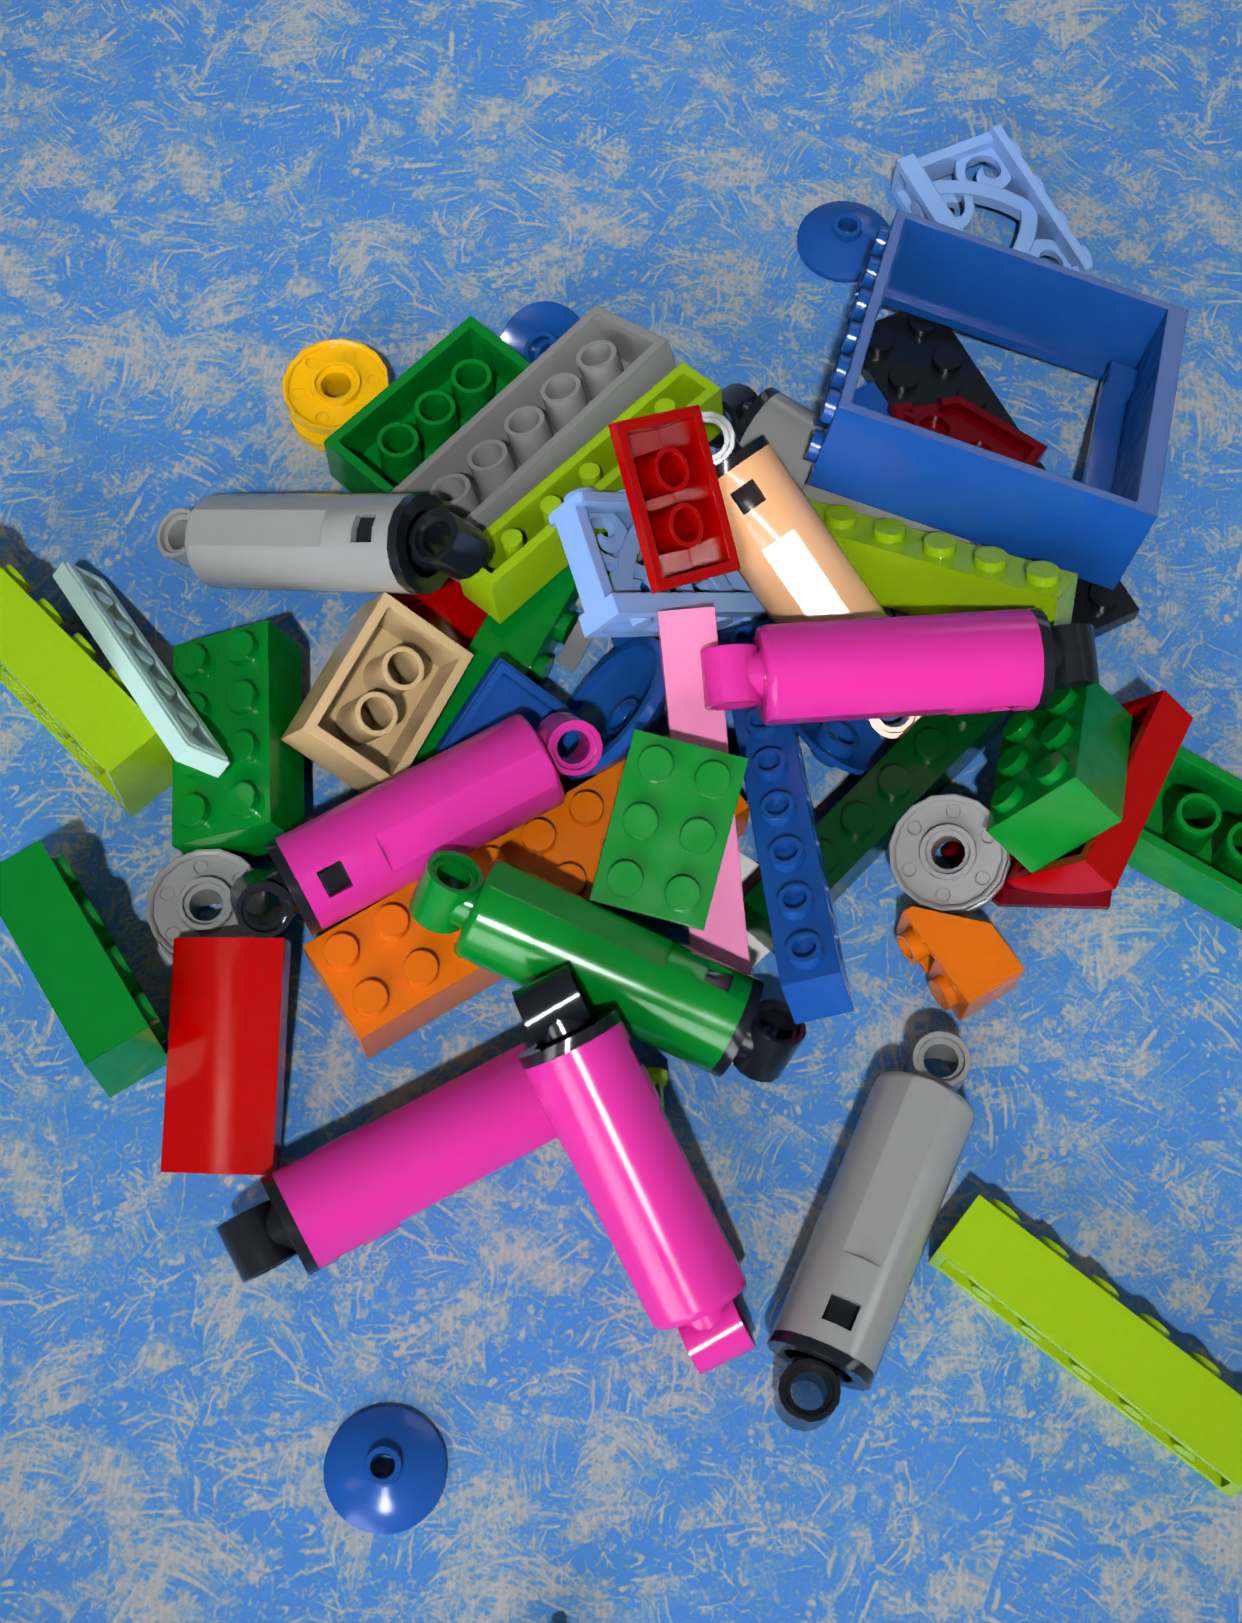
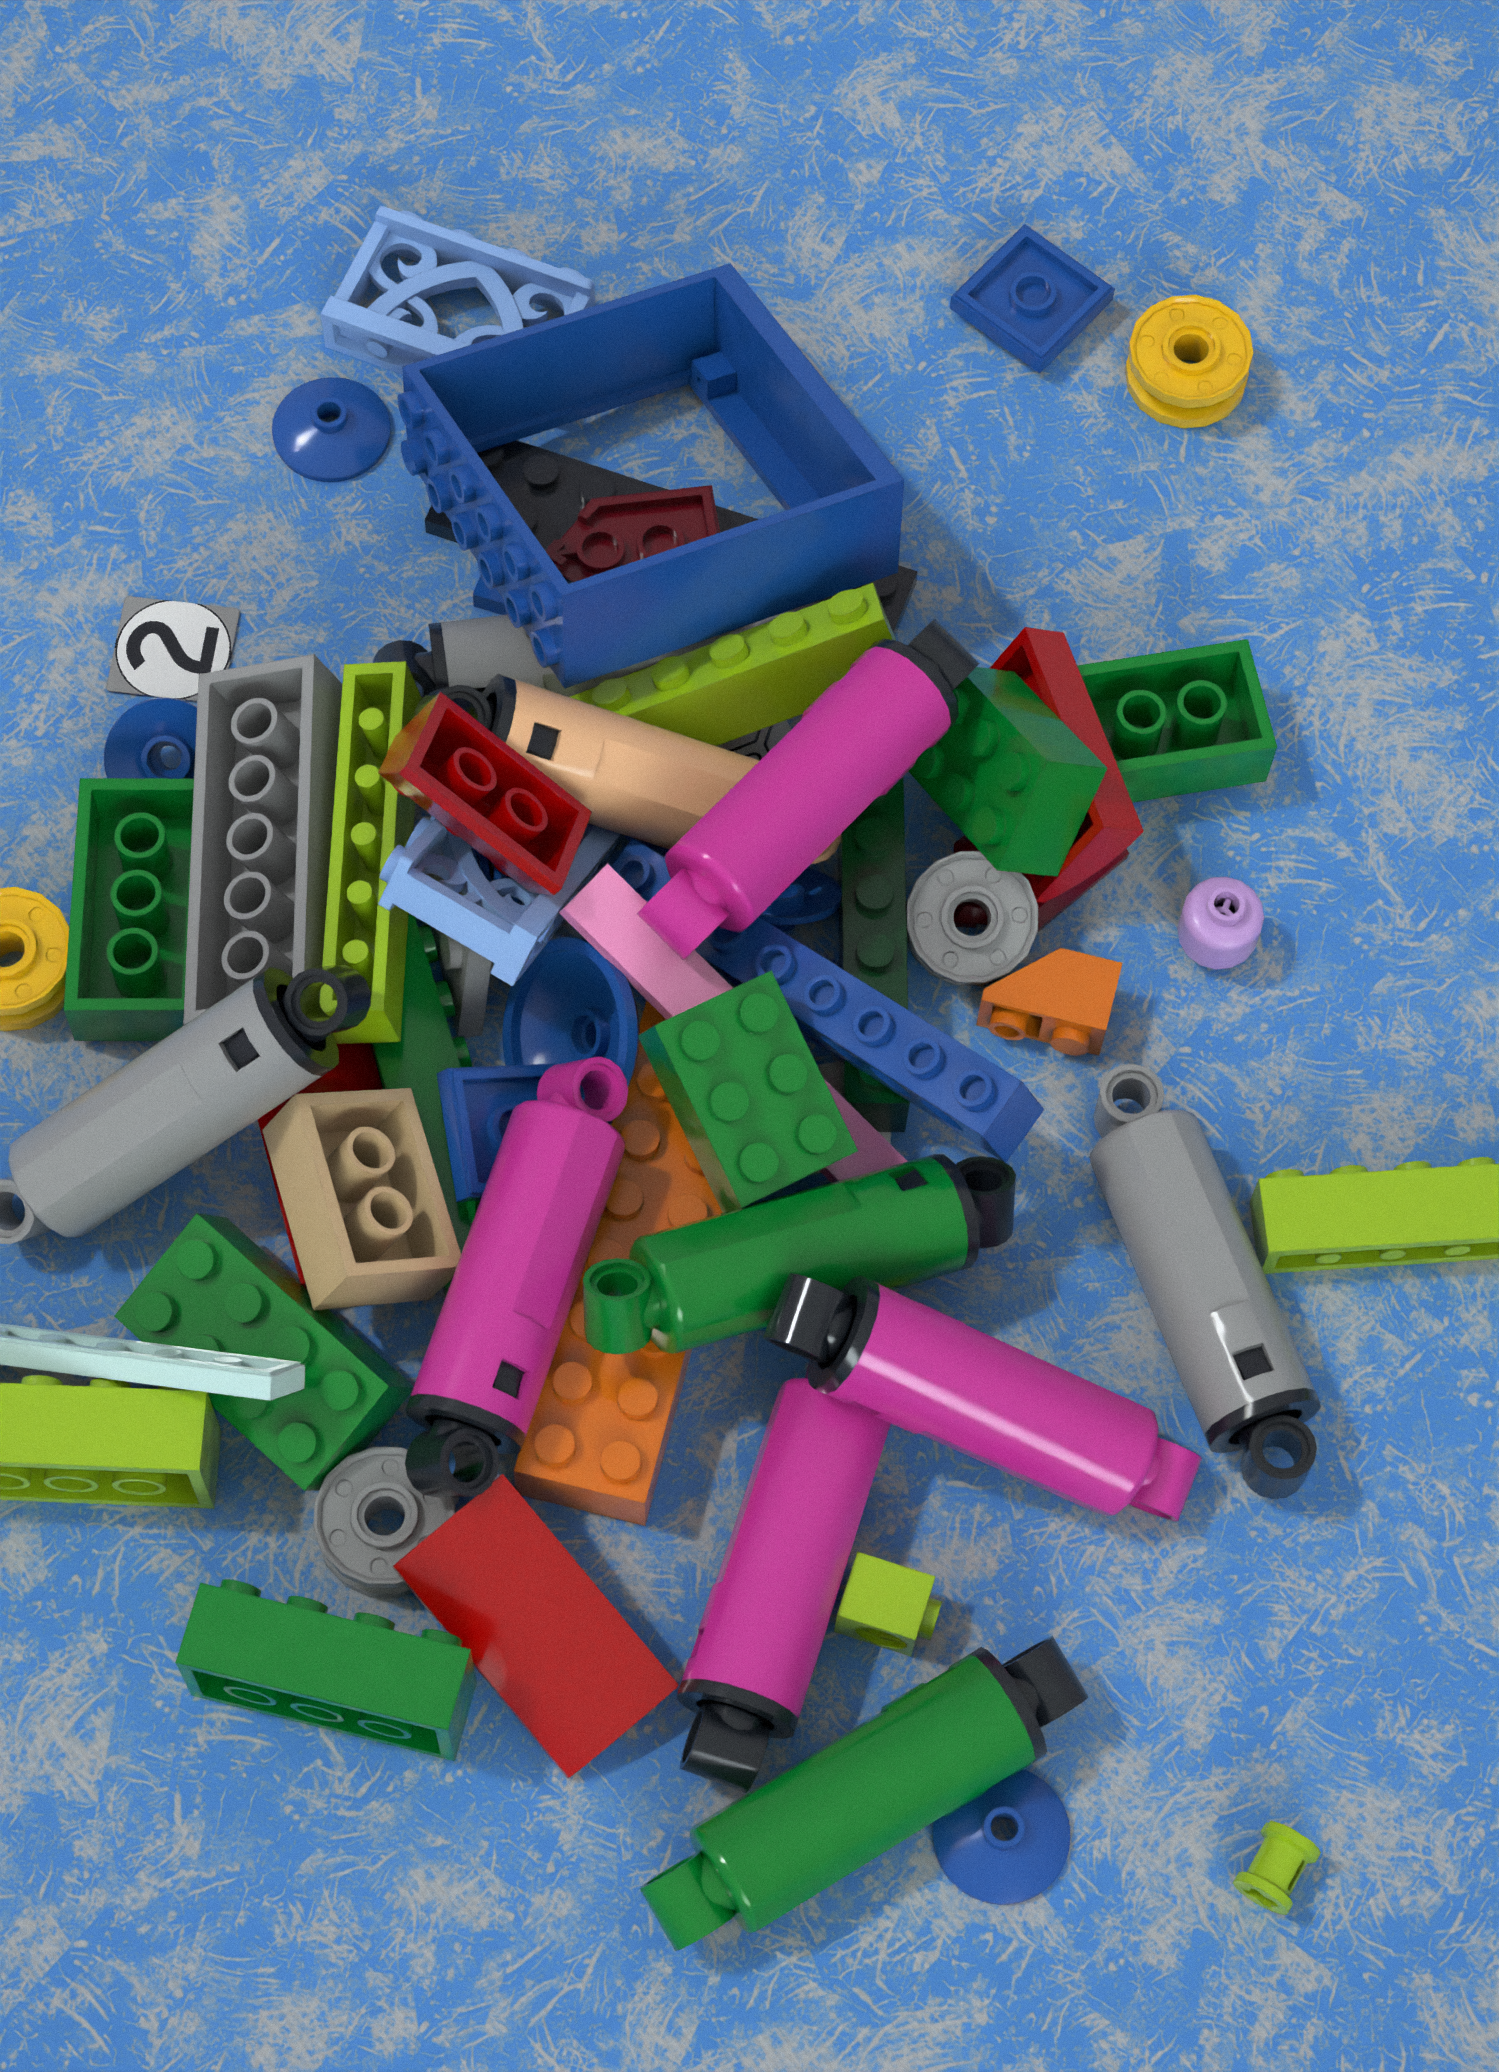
camera: 45 degrees left, 0 degrees up
(317, 1356) = (865, 1792): none -> green piece
(456, 1248) = (887, 1605): none -> lime brick
(623, 288) = (168, 645): none -> sticker
(1125, 1002) = (1220, 923): none -> lavender head

